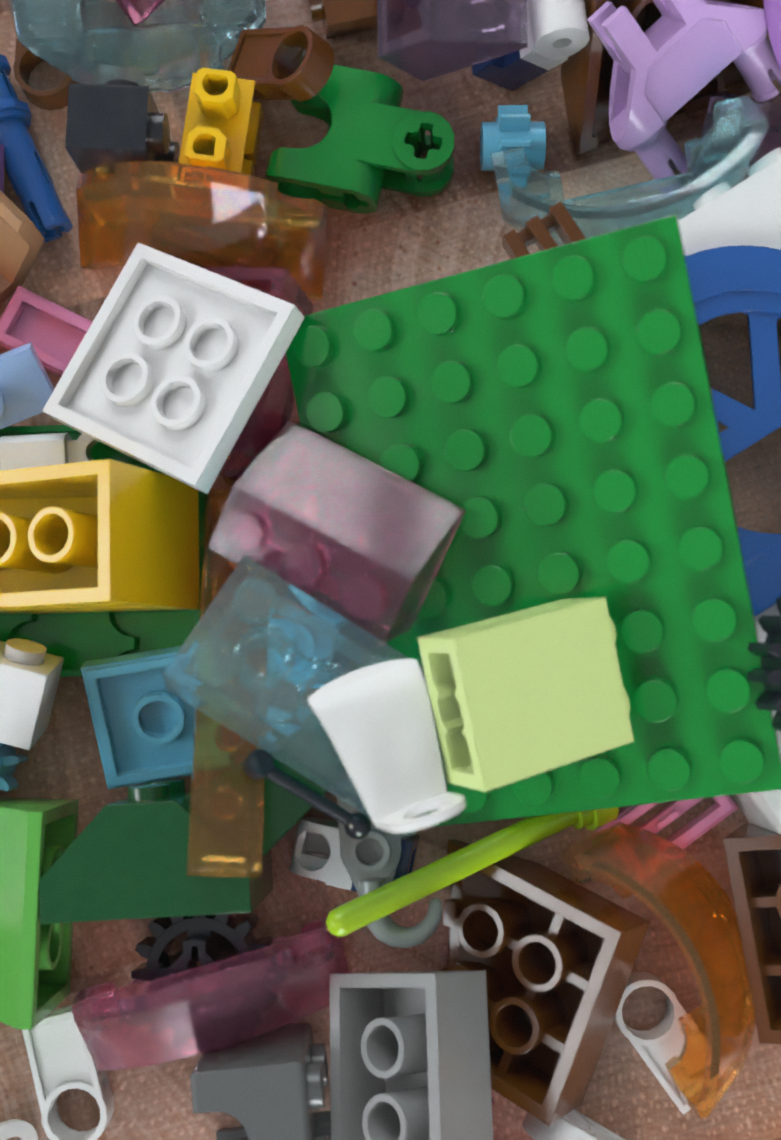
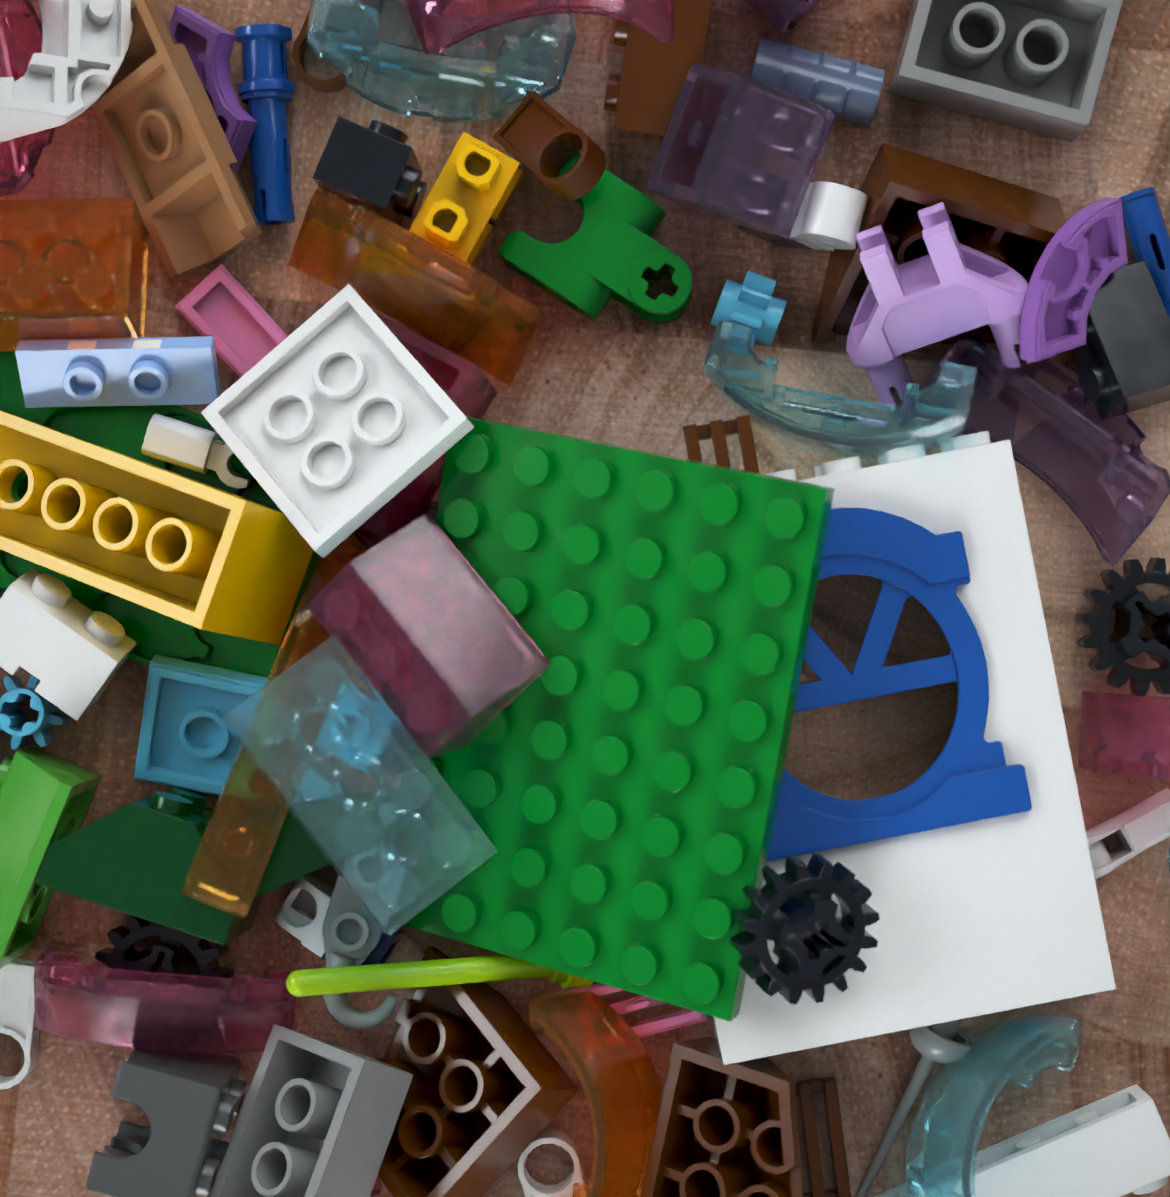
camera: 20 degrees right, 5 degrees up
(261, 765) = (281, 821): black hinge -> none
(388, 744) = (395, 852): white piece -> none
(526, 692) = (533, 852): yellowish green brick -> none

